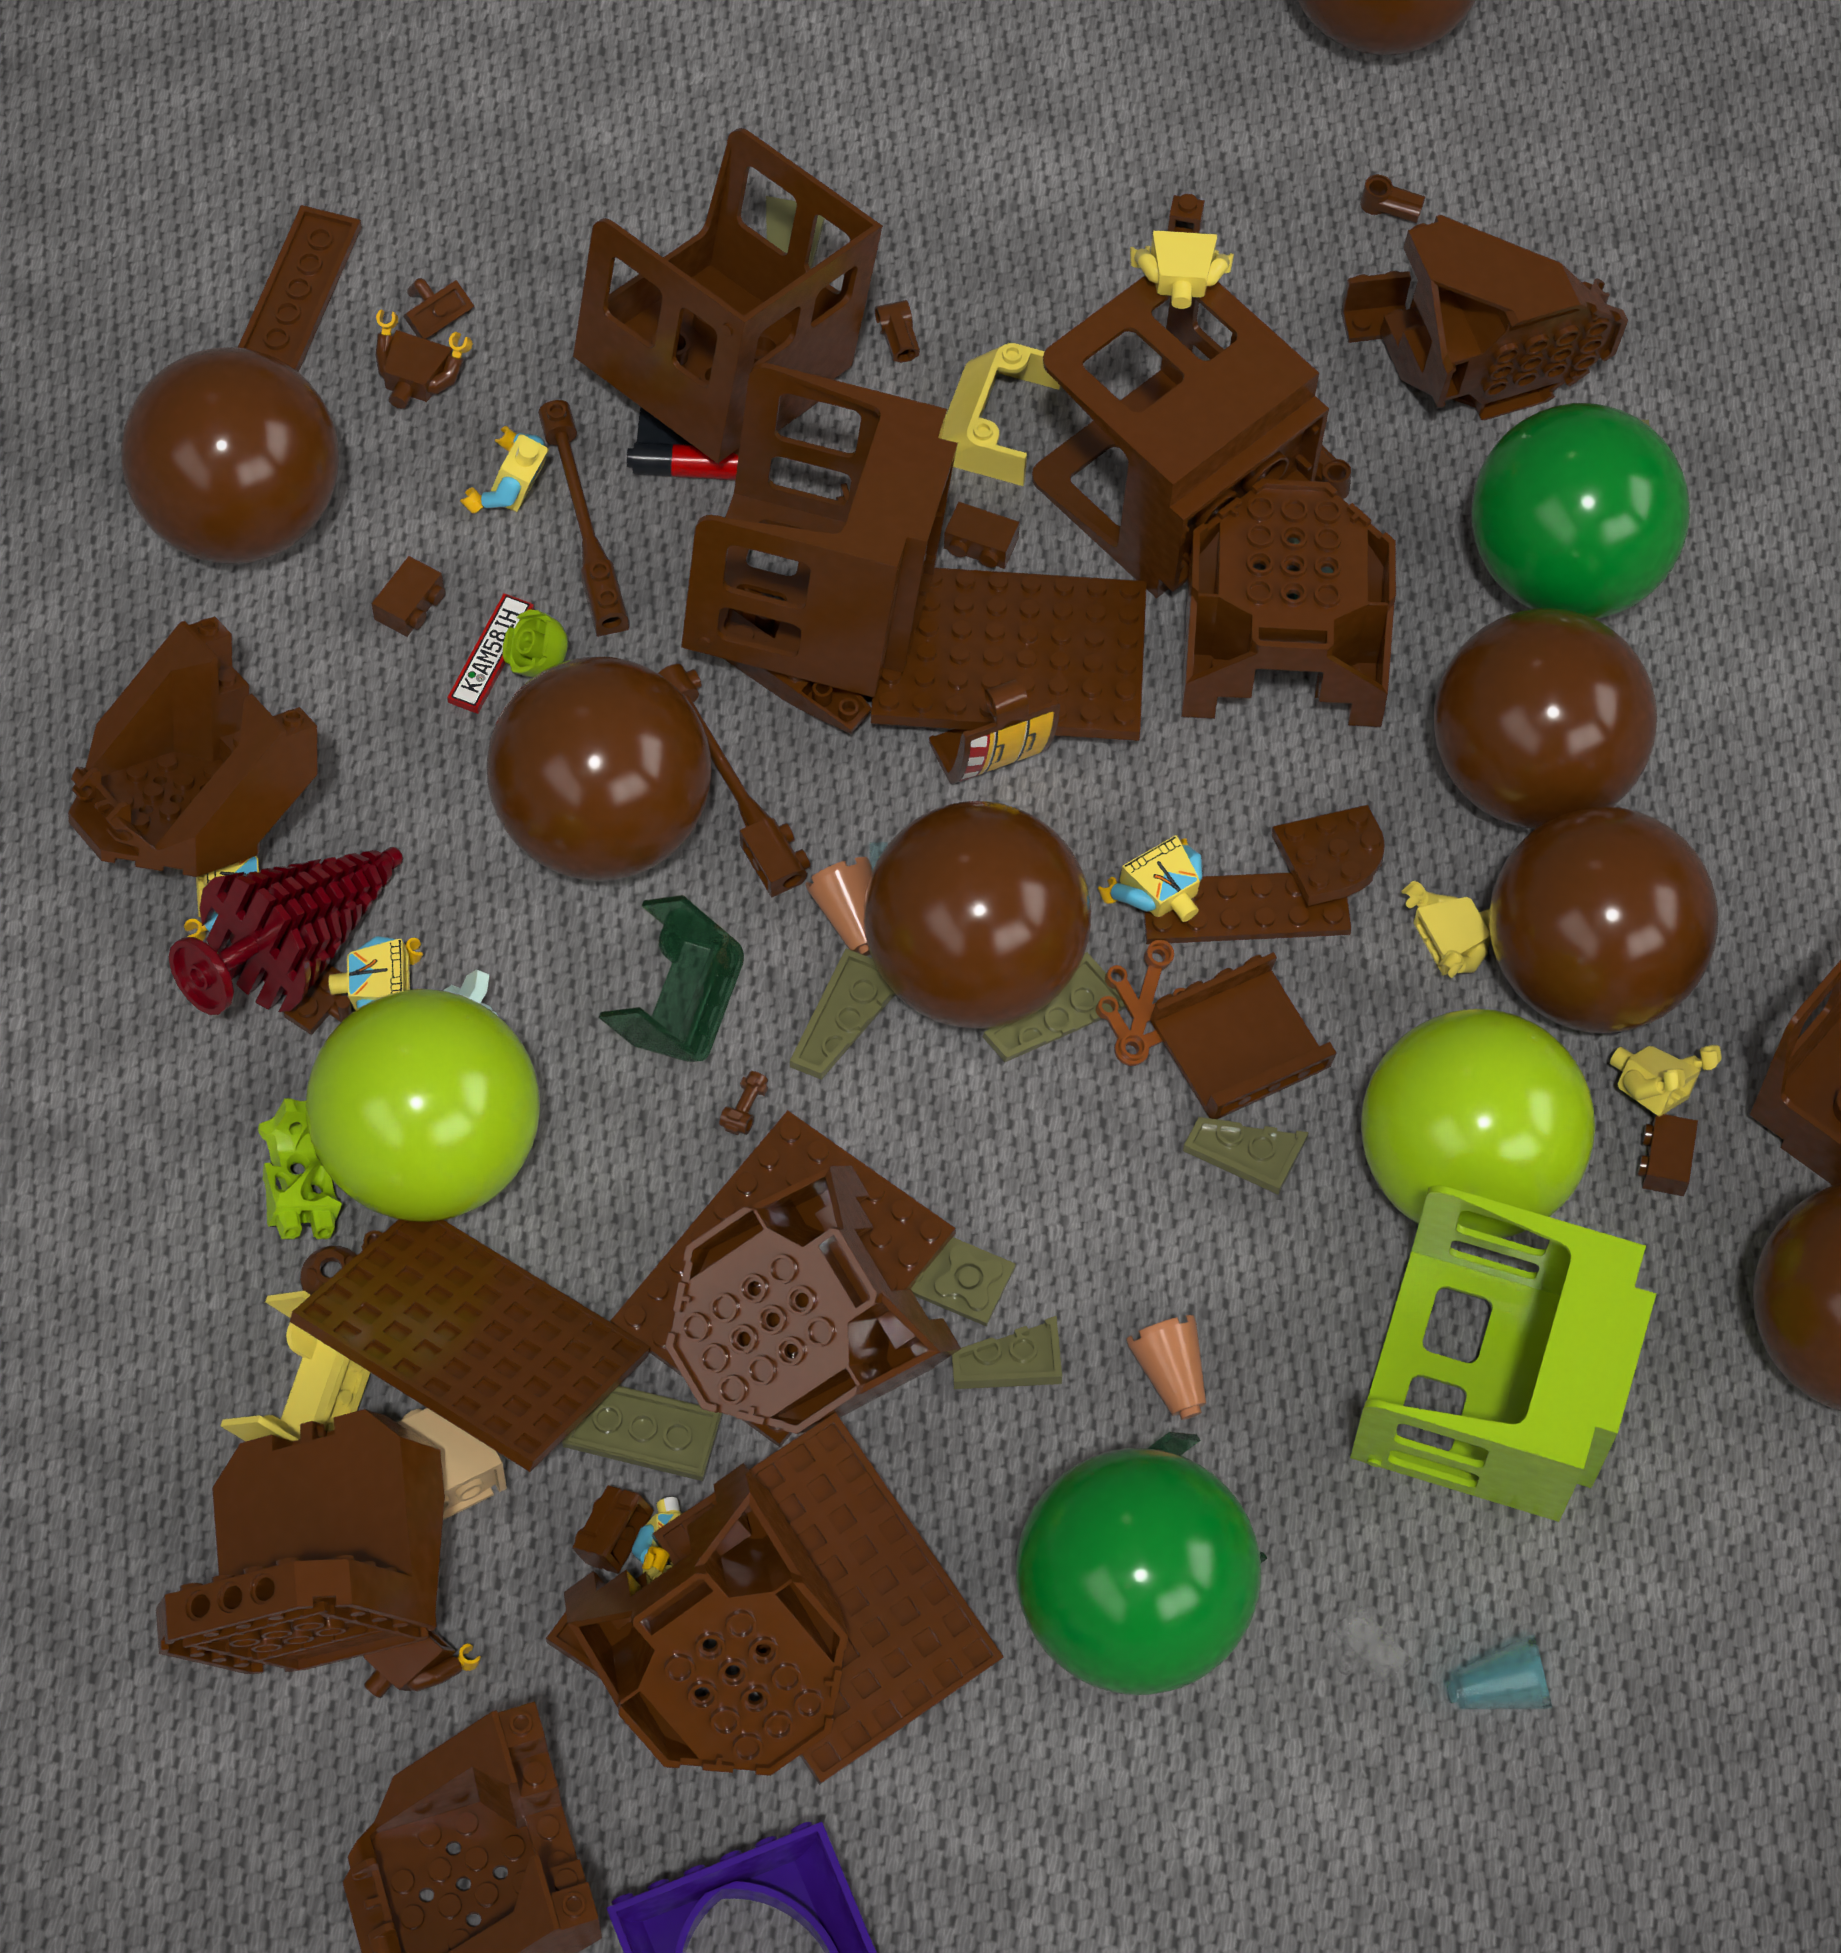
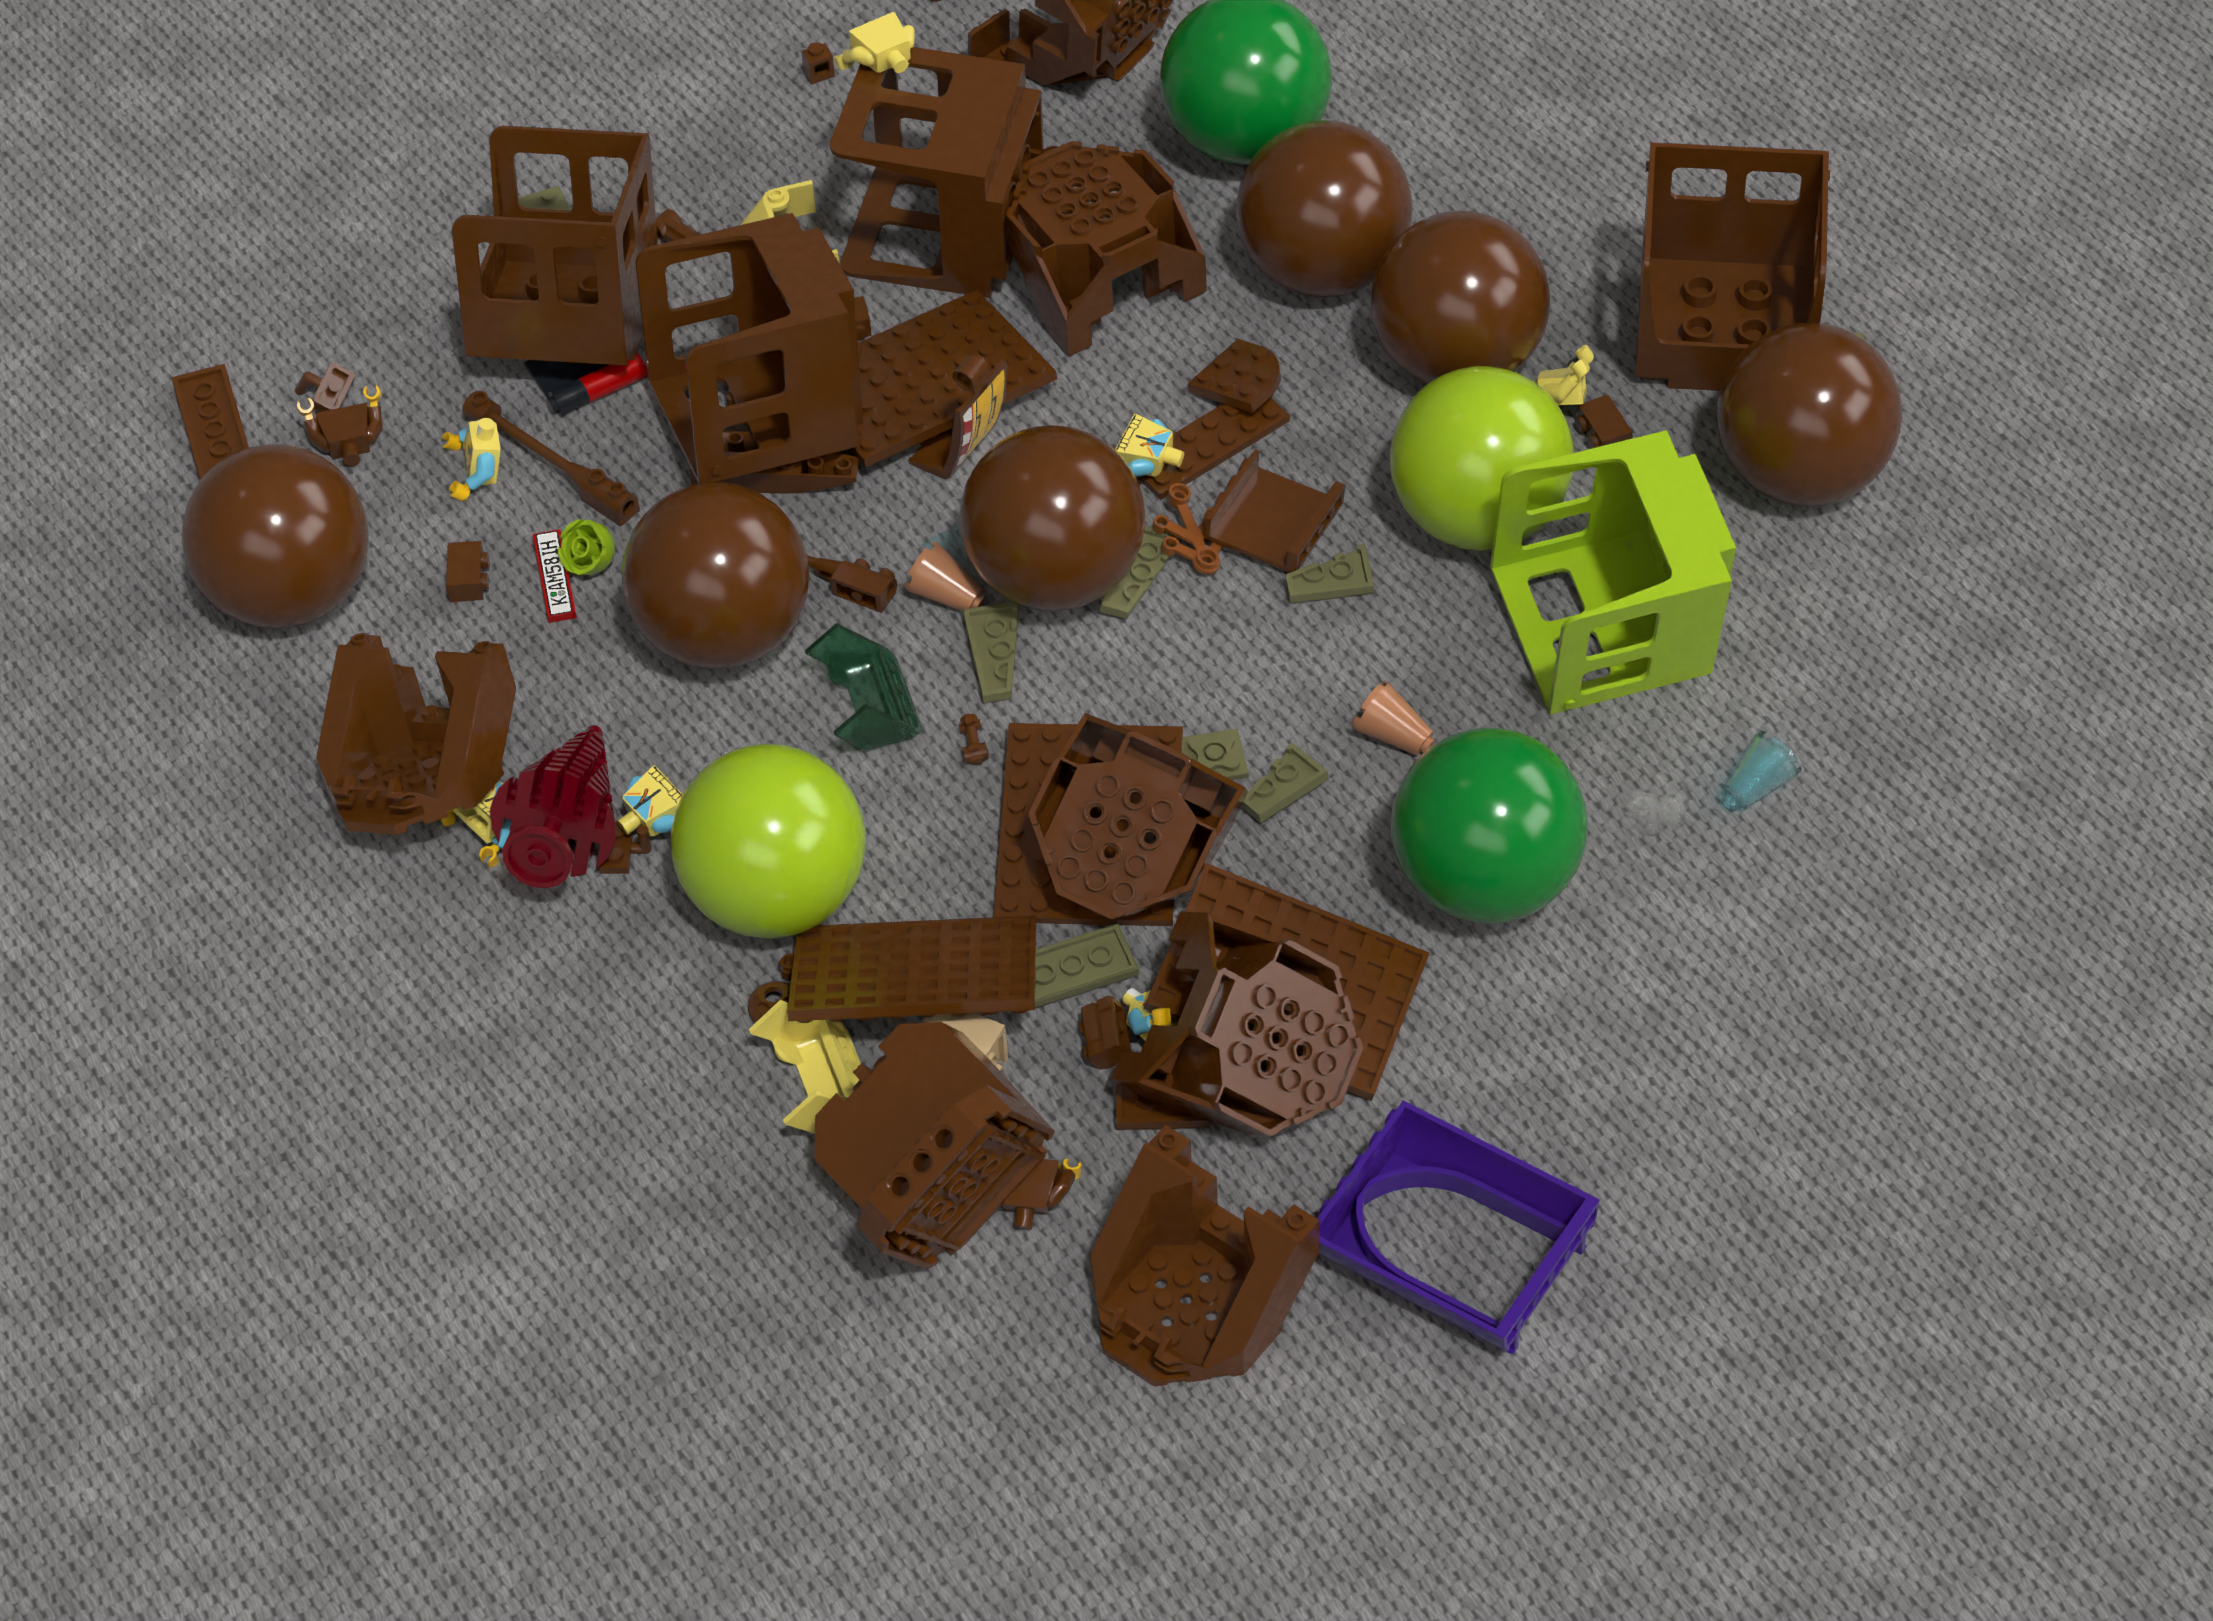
camera: 30 degrees left, 10 degrees down
(290, 1195) = (714, 966): lime hips -> none
(1450, 929) = (1355, 377): light yellow torso -> none

